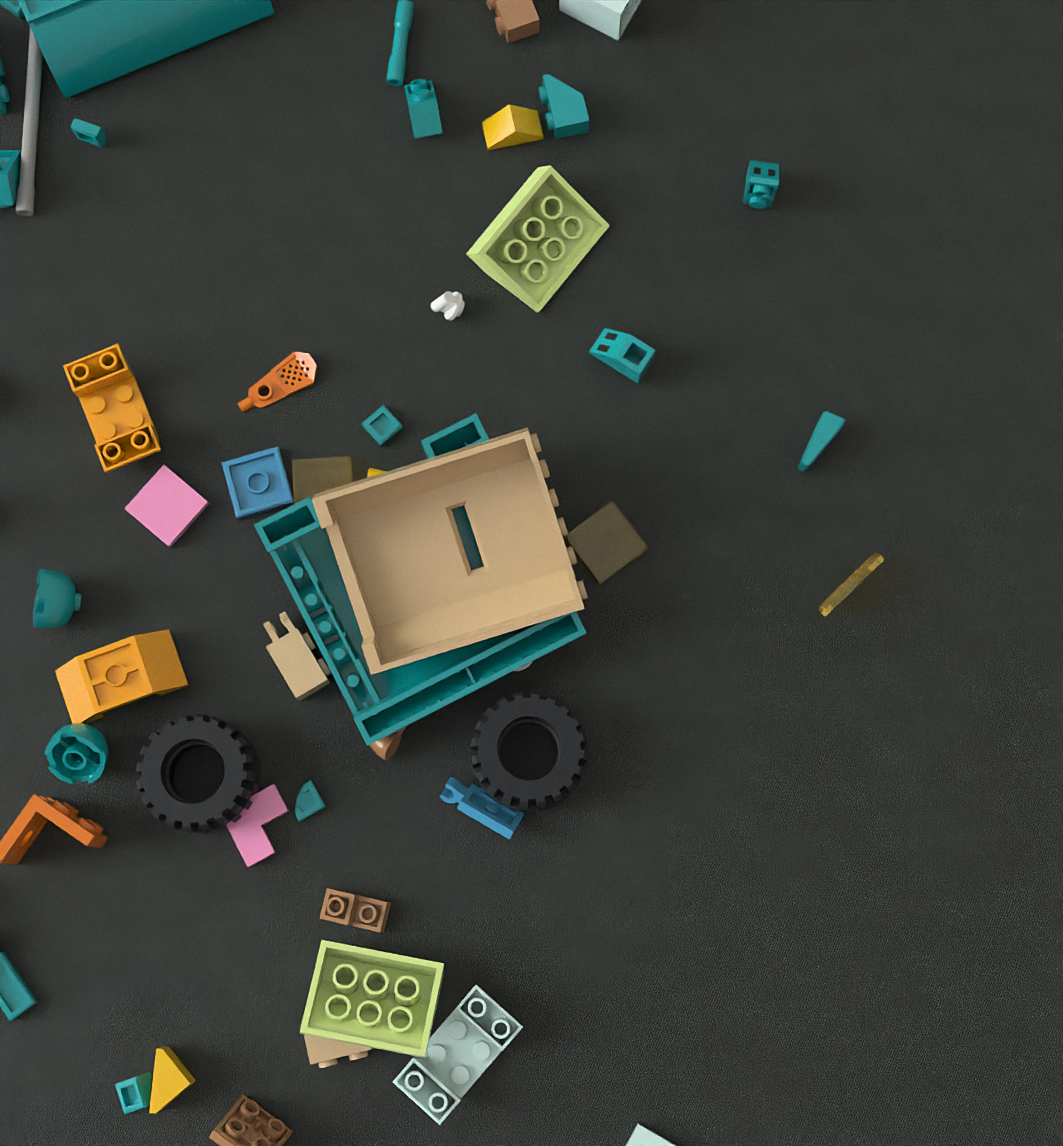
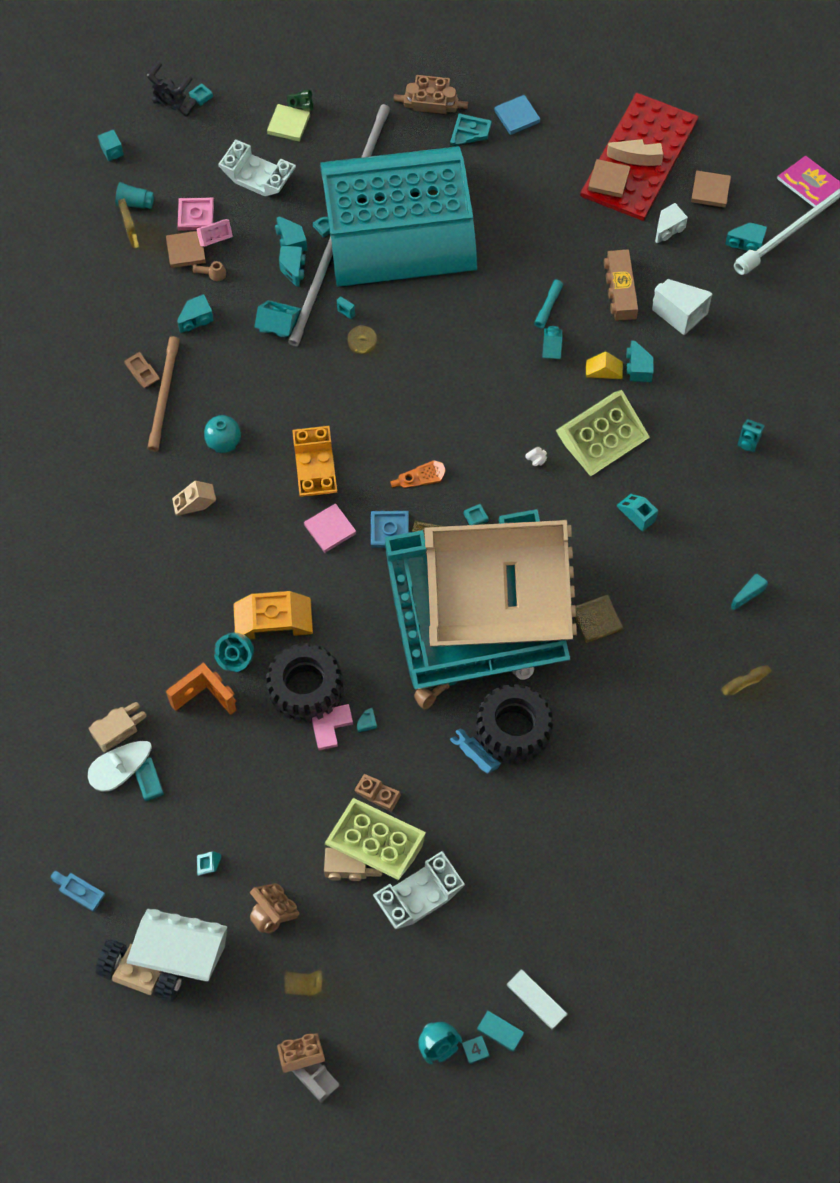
camera: 15 degrees right, 15 degrees down
(54, 600) = (246, 561): teal cylinder -> none
(120, 170) = (358, 333): none -> clear yellow piece
(169, 1079) = (231, 861): yellow slope -> none
(296, 660) = (384, 635): tan hinge -> none

